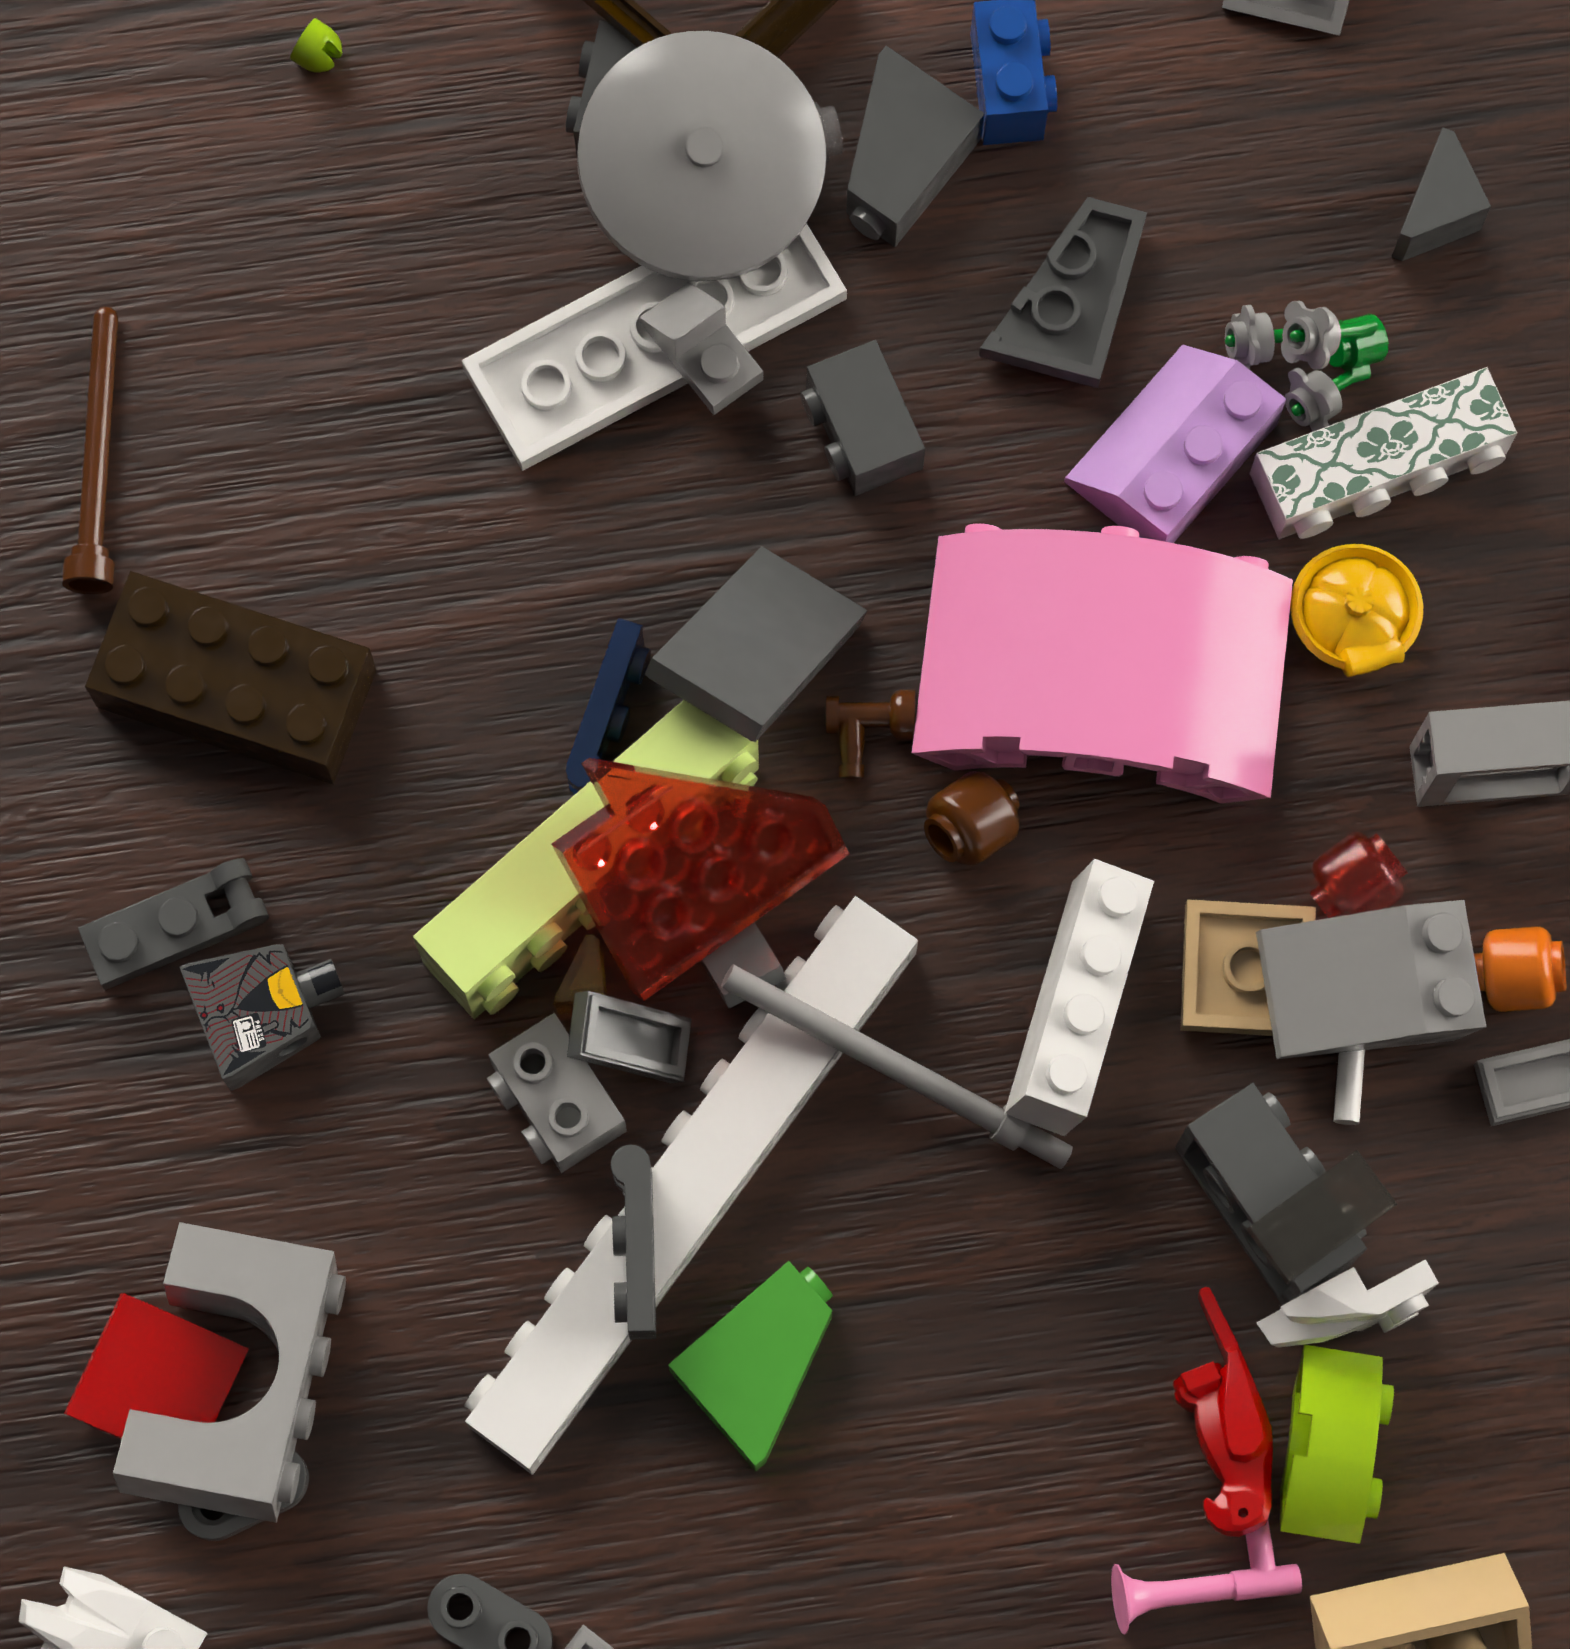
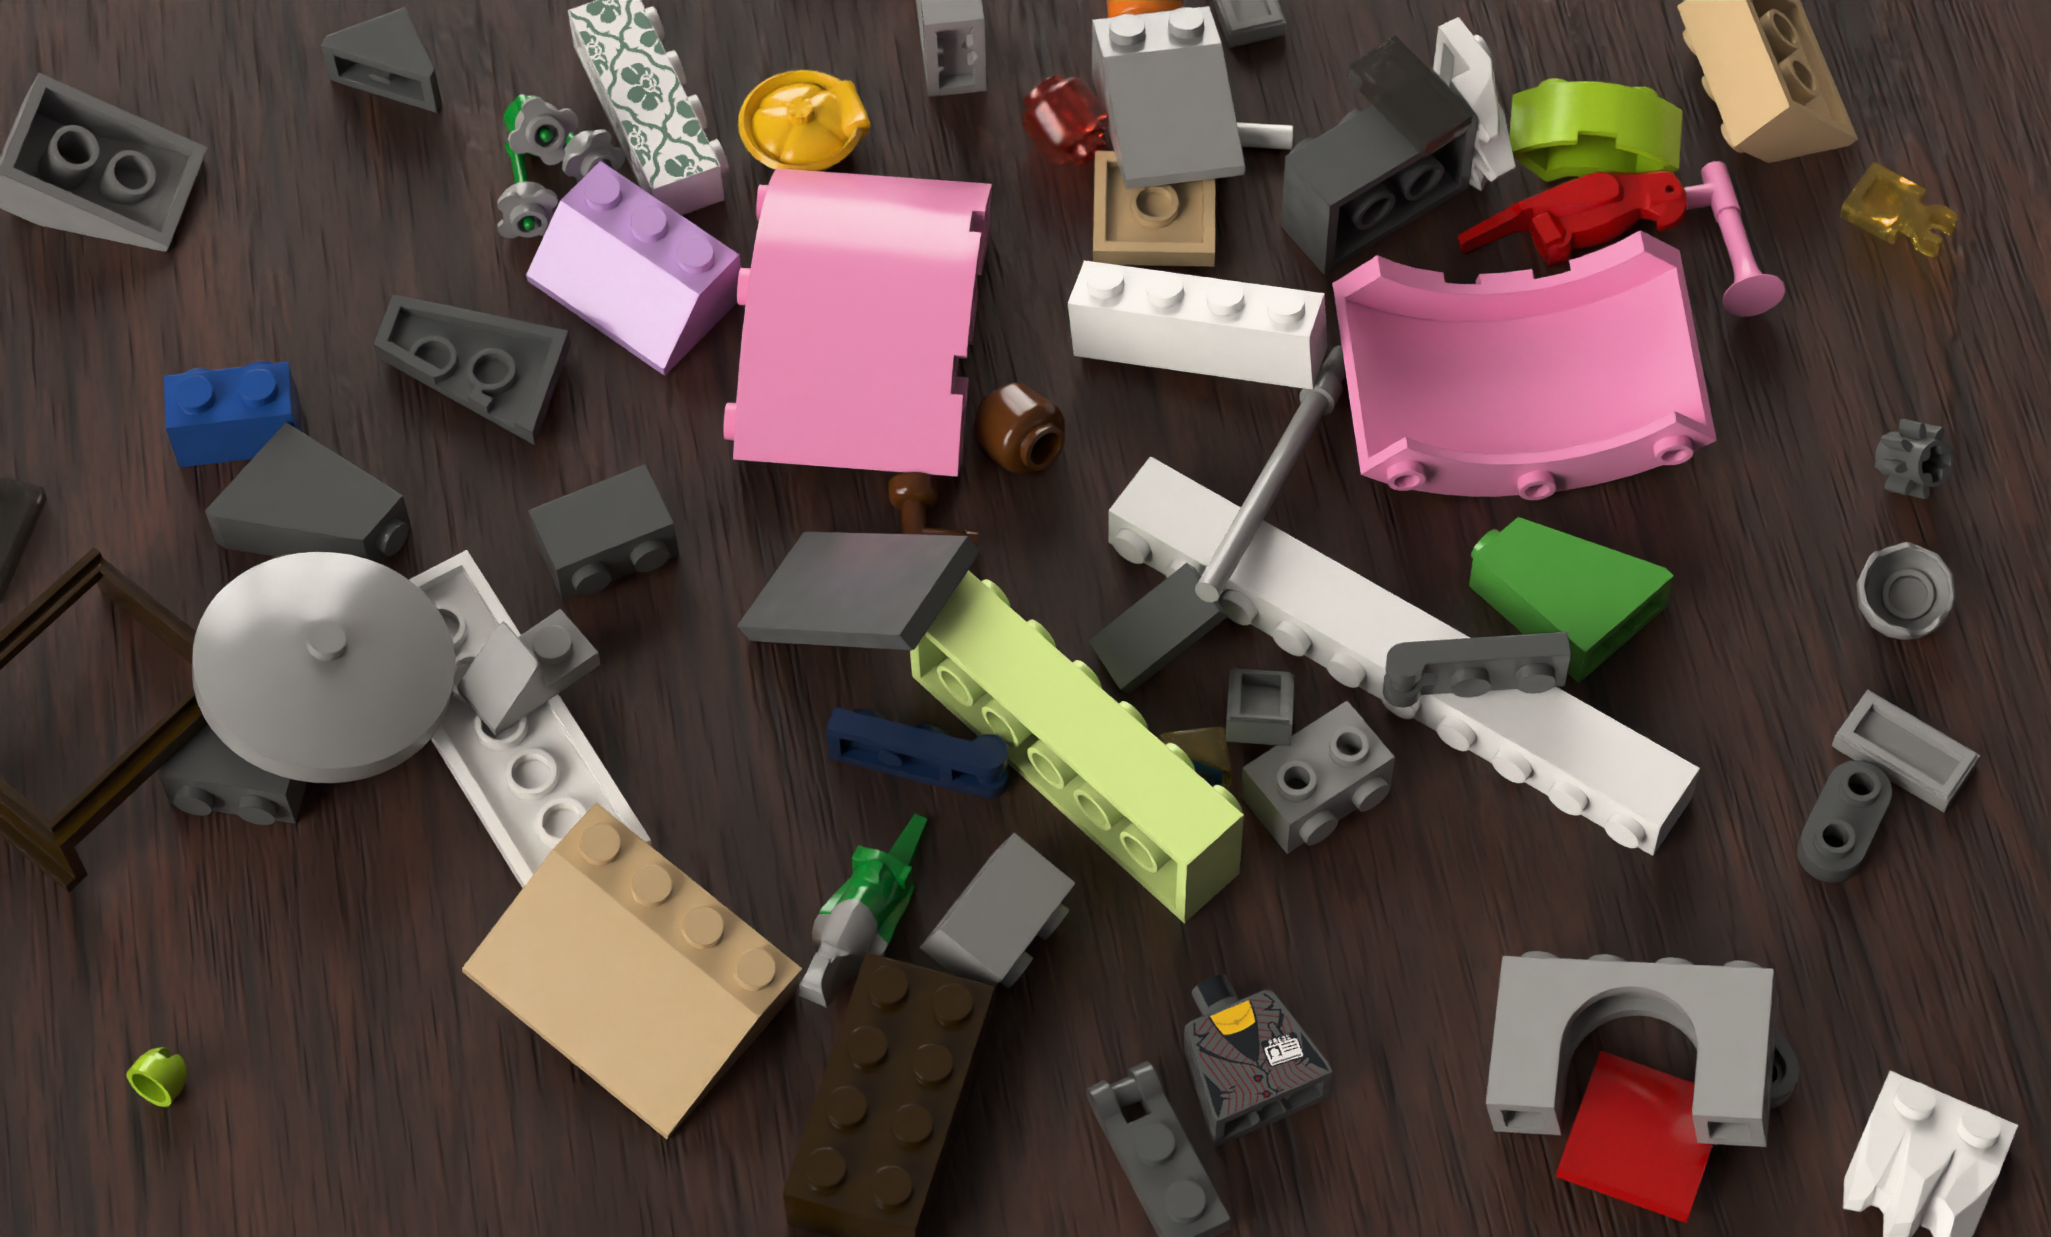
camera: 90 degrees left, 15 degrees down
(381, 447) = (633, 970): none -> tan slope
(414, 779) = (1000, 915): none -> light grey brick
(433, 657) = (861, 914): none -> animal
(688, 863) = (1097, 630): clear red wing -> none
(1015, 1332) = (1523, 375): none -> bright pink panel

